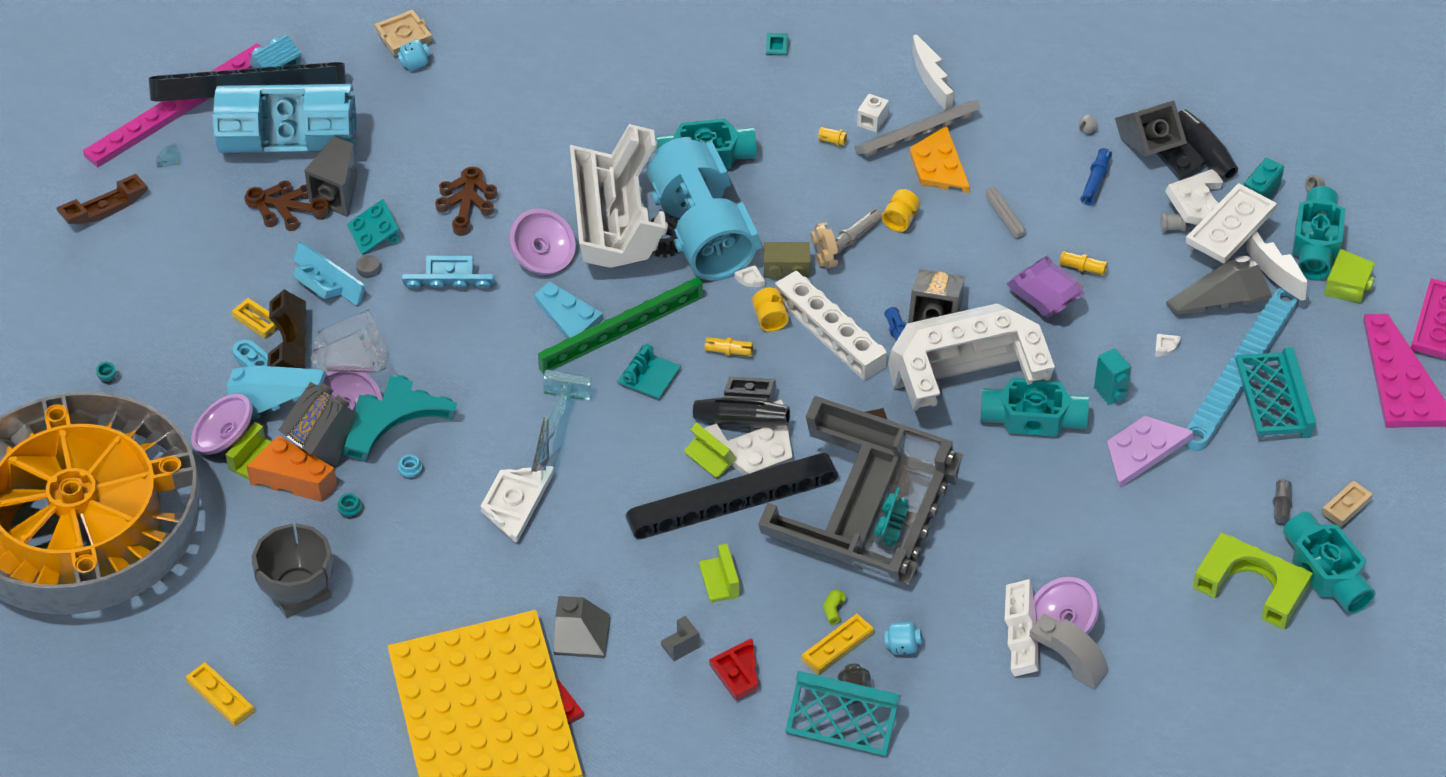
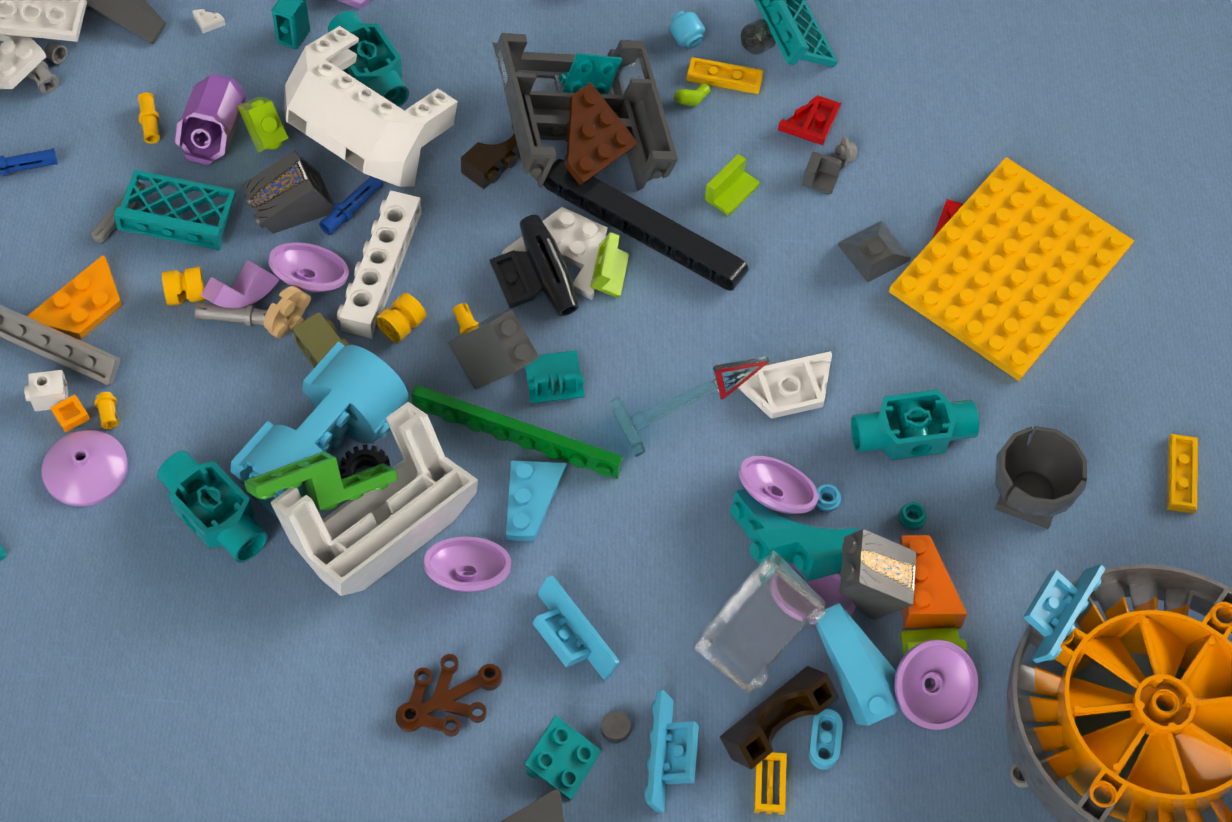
camera: 130 degrees left, 10 degrees up
(183, 463) = (1057, 608): none -> medium azure bracket
(408, 543) = (914, 425): none -> teal brick
(445, 414) = (778, 485): none -> lavender dish
(652, 163) = (321, 481): none -> bright green bracket
(686, 668) = (846, 152): none -> light grey plate
(687, 332) = (493, 349): none -> dark grey slope
(799, 112) = (89, 479): none -> lavender dish
(828, 488) = (593, 135): none -> reddish brown plate
(846, 117) = (70, 413): none -> light orange plate
(867, 268) = (308, 267): none -> lavender dish
(868, 233) = (250, 286): none -> lavender brick
(965, 226) = (169, 225): none -> teal fence
(1013, 297) = (263, 123): none -> lime torso

